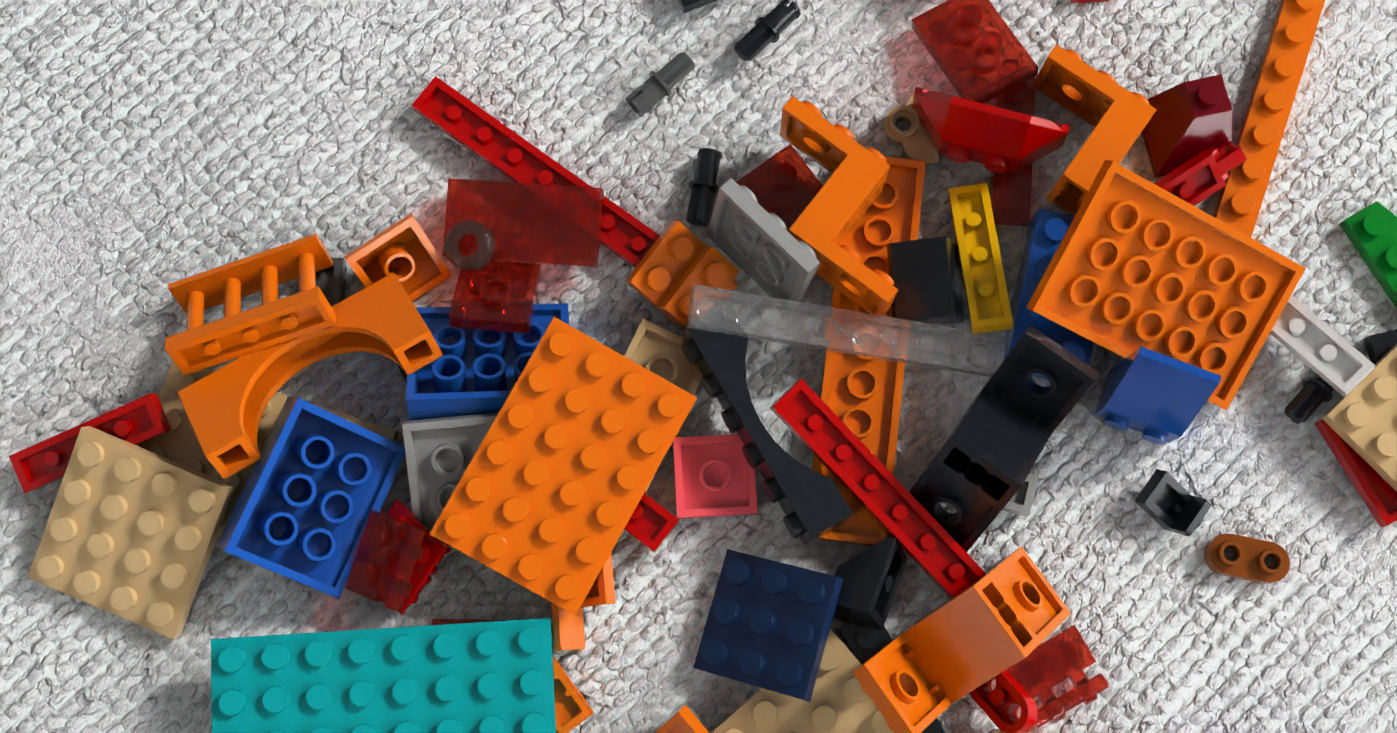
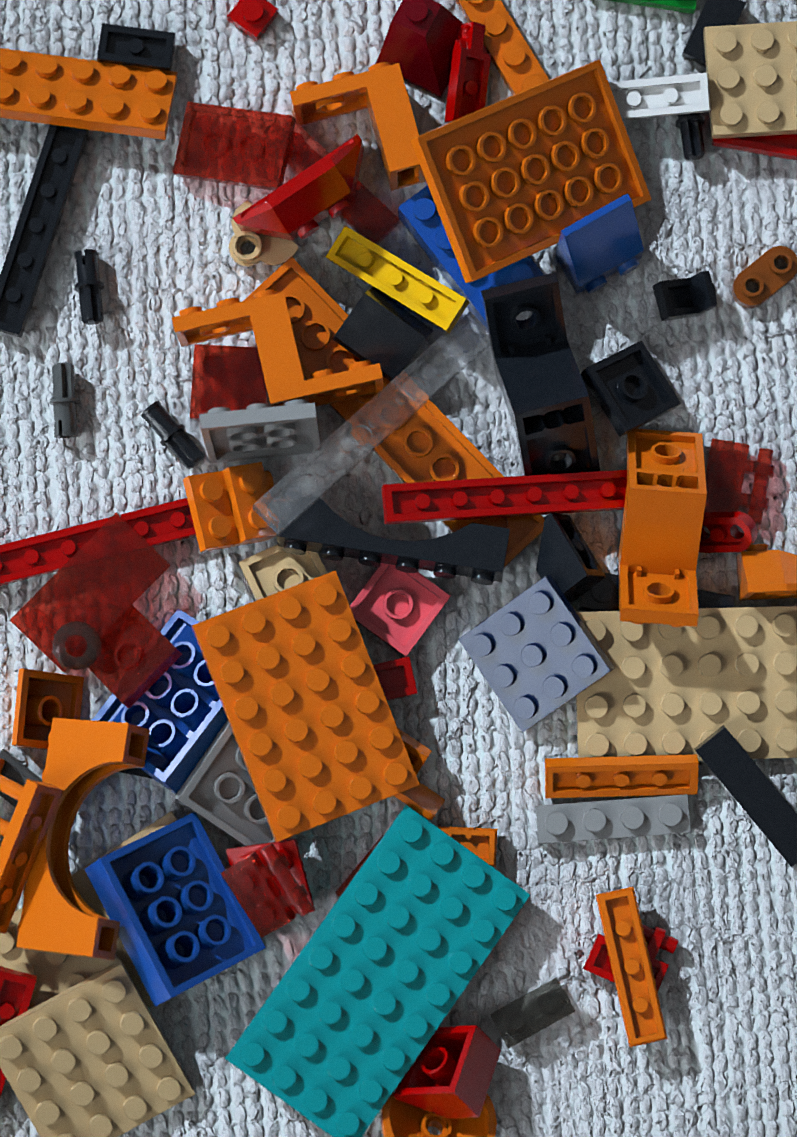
camera: 50 degrees left, 5 degrees up
(1056, 520) = (630, 388): none -> black plate

